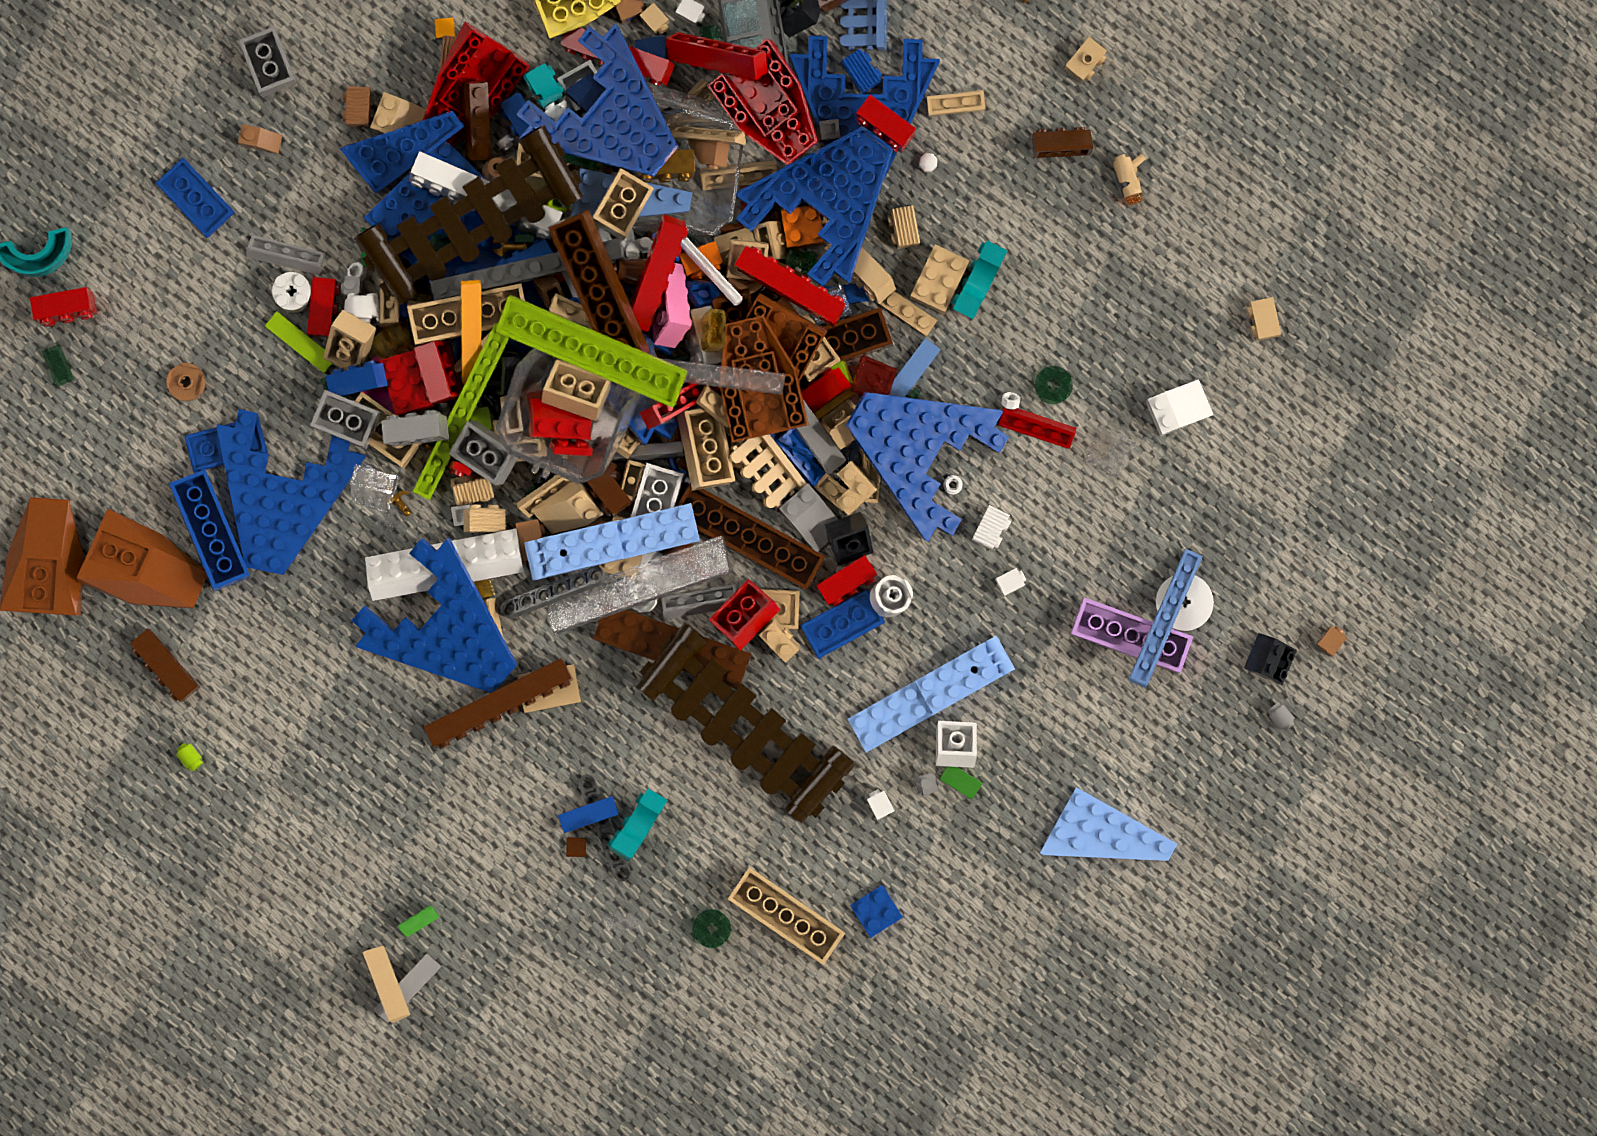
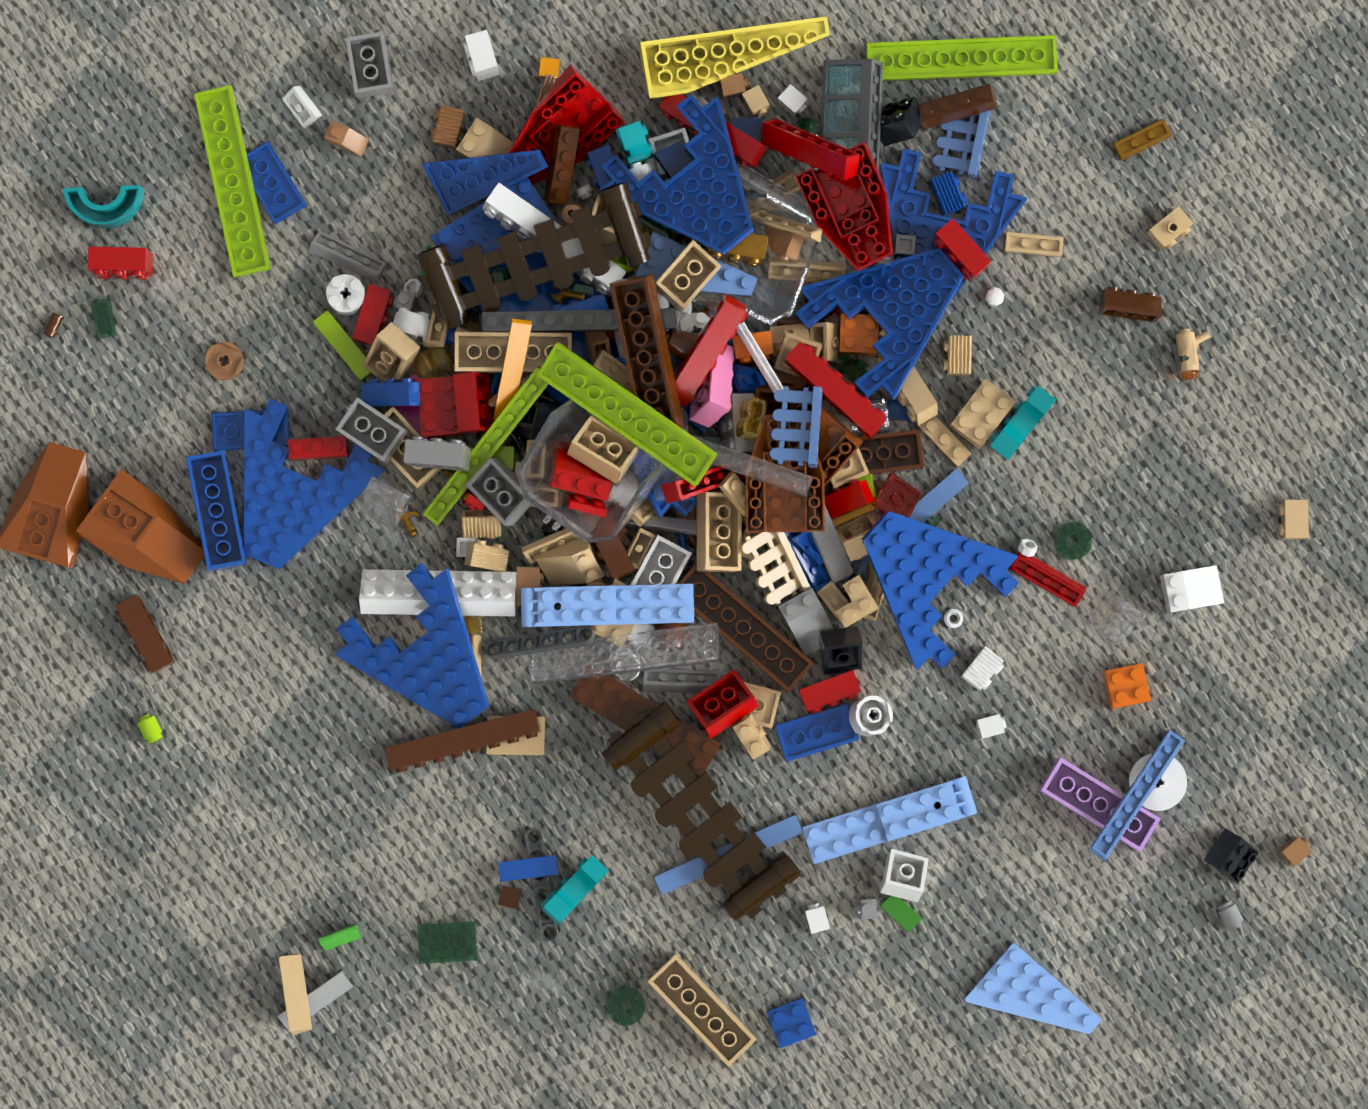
camera: 15 degrees right, 0 degrees up
(10, 382) = (53, 325): none -> reddish brown pin
(156, 204) = (232, 181): none -> lime plate
(208, 116) = (301, 106): none -> white slope
(297, 448) = (318, 448): none -> red brick
(375, 27) = (480, 51): none -> white brick
(524, 903) = (447, 942): none -> clear green plate
(751, 781) = (694, 869): none -> medium blue tile
(762, 337) = (797, 416): none -> medium blue fence
(1134, 515) = (1126, 686): none -> orange brick

